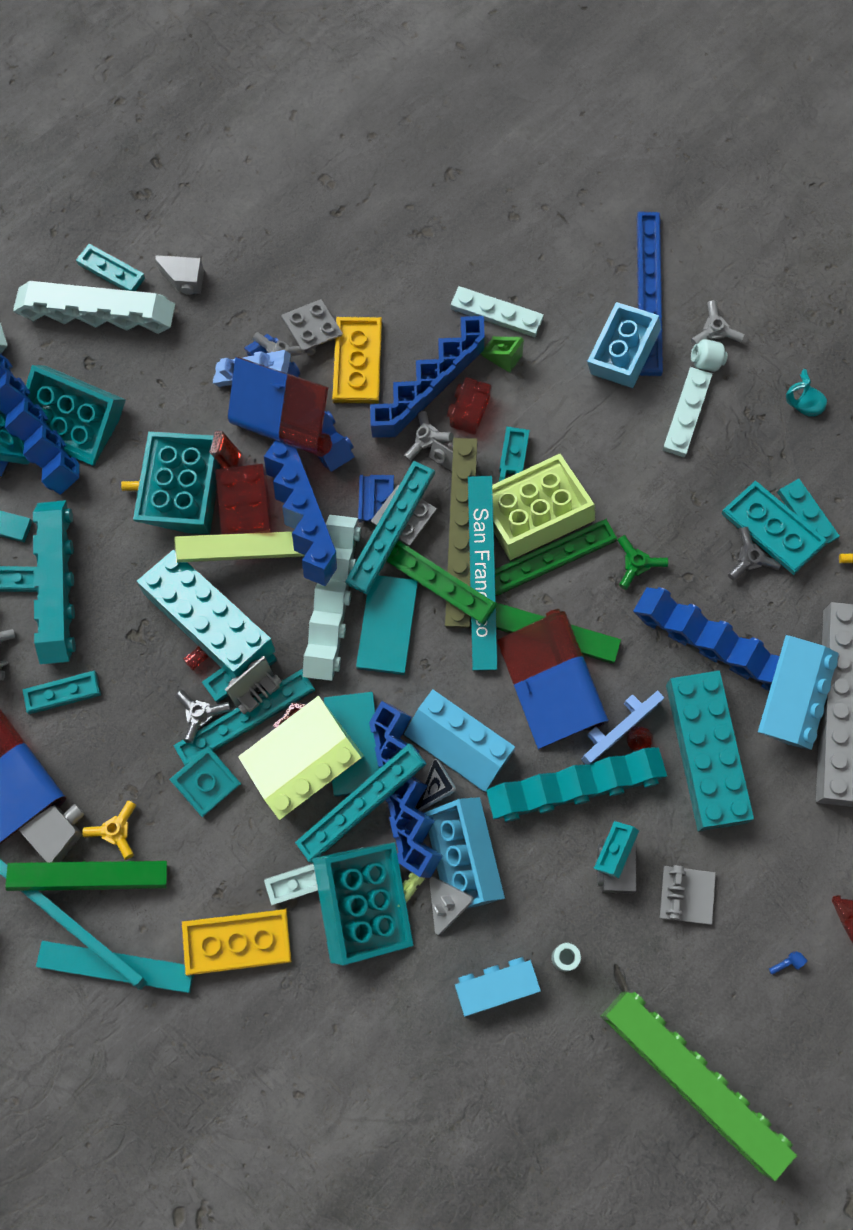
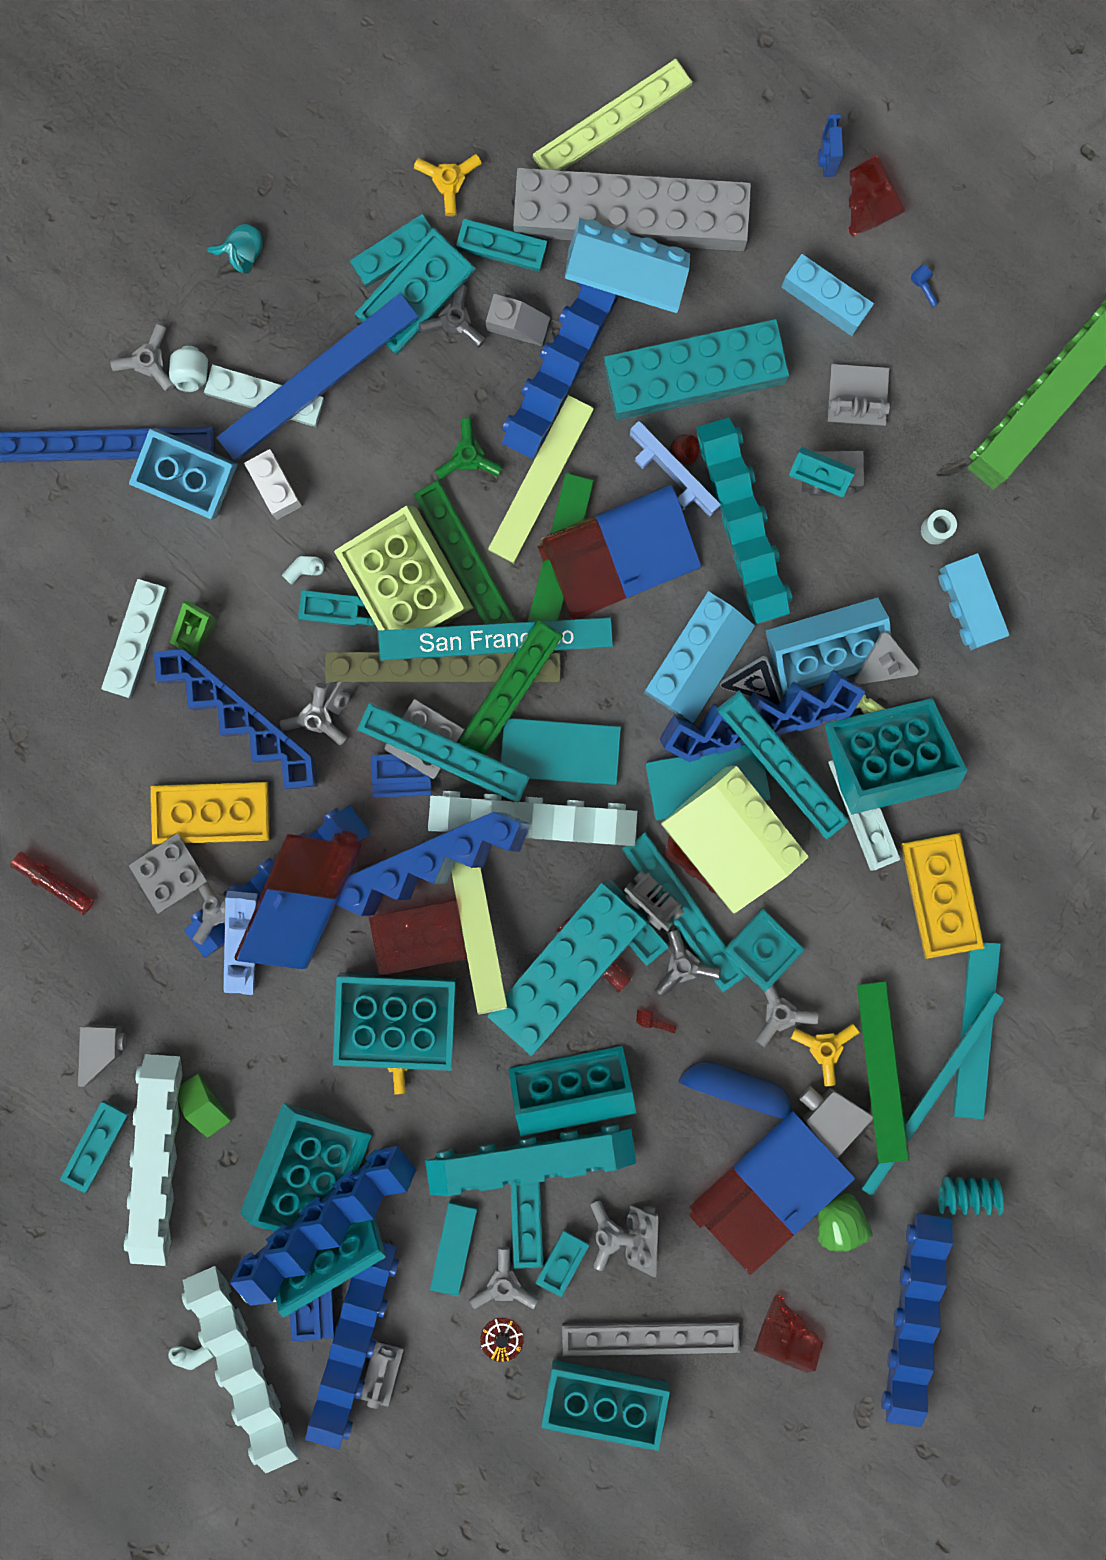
camera: 90 degrees left, 15 degrees up
(61, 692) = (665, 1134): teal tile -> none
(89, 753) = (737, 1088): none -> blue brick
(106, 617) = (571, 1091): none -> teal slope
(130, 343) = (202, 1106): none -> bright green slope
(147, 793) = (781, 1015): none -> light grey piece
(157, 680) = (645, 1019): none -> clear red hand
(224, 450) = (353, 966): clear red tile -> none
(318, 241) = (23, 864): none -> clear red pin
(470, 405) = (271, 665): clear red brick -> none
(550, 434) = (303, 565): none -> light aqua arm
(615, 412) = (273, 484): none -> white brick
(617, 620) = (541, 479): none -> yellowish green tile
(702, 448) = (317, 377): none -> blue tile
(751, 605) = (517, 320): none -> light grey slope
(777, 869) = (827, 295): none -> medium azure brick
(815, 597) = (501, 245): none -> teal plate

